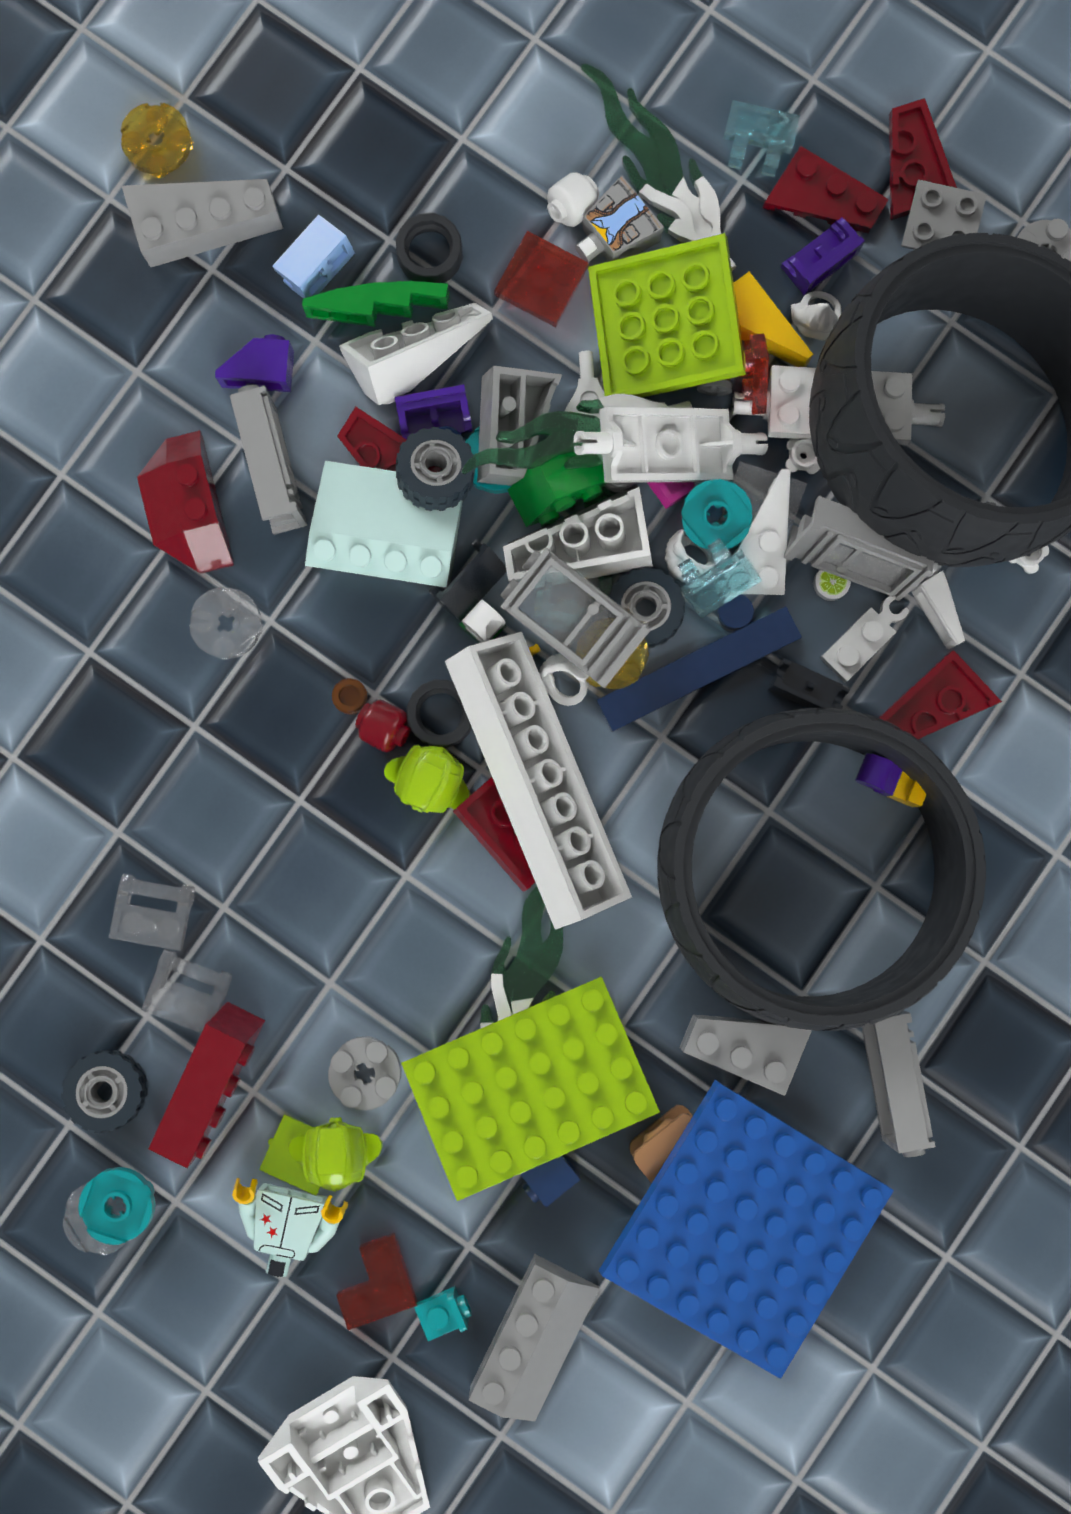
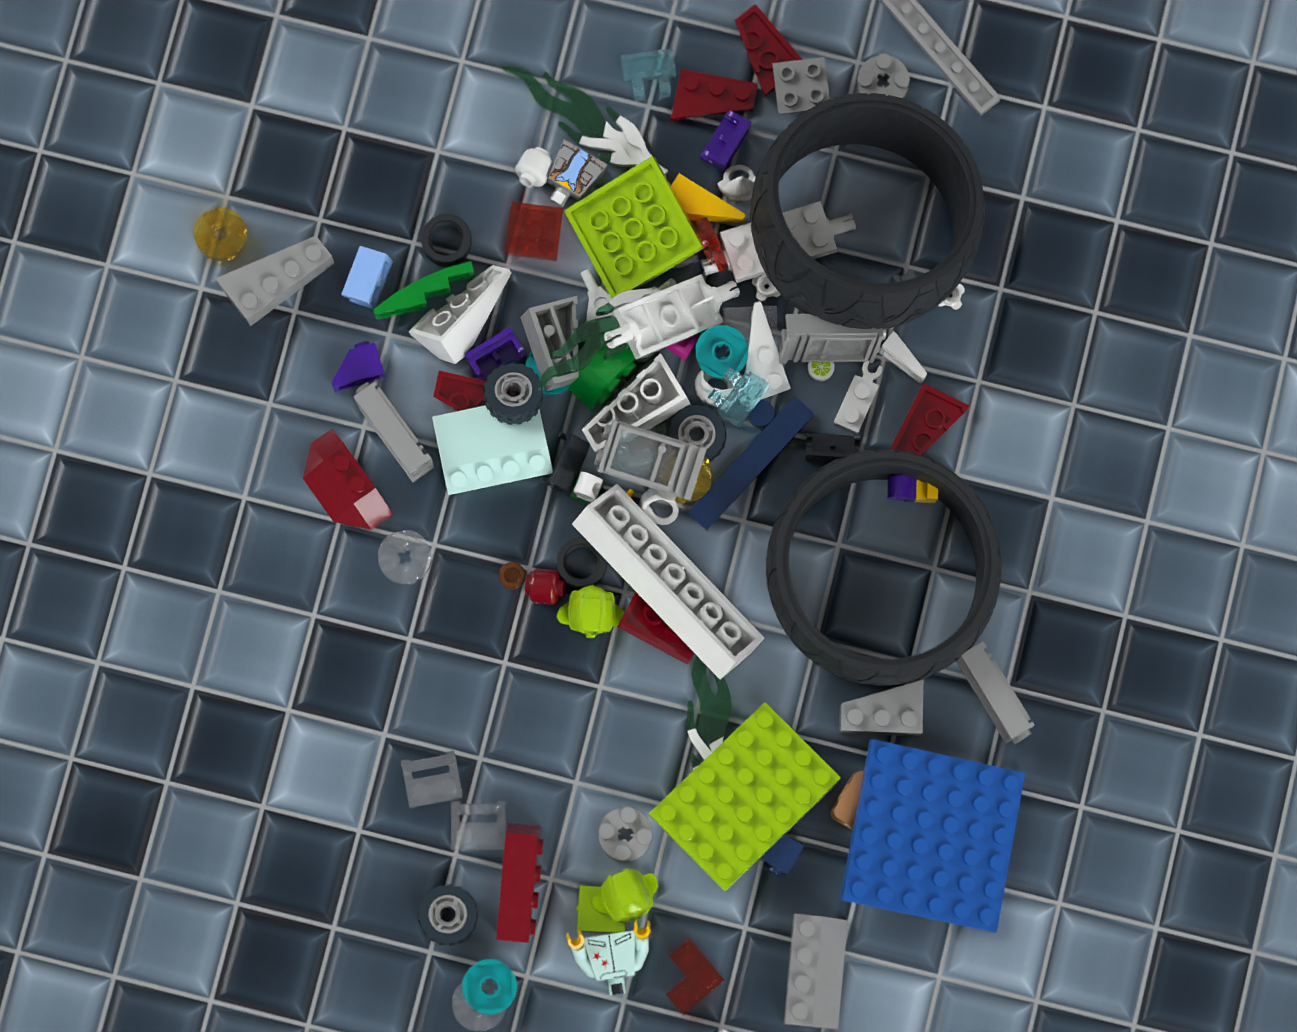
camera: 20 degrees left, 5 degrees down
(443, 1313) = (745, 978): teal bracket -> none

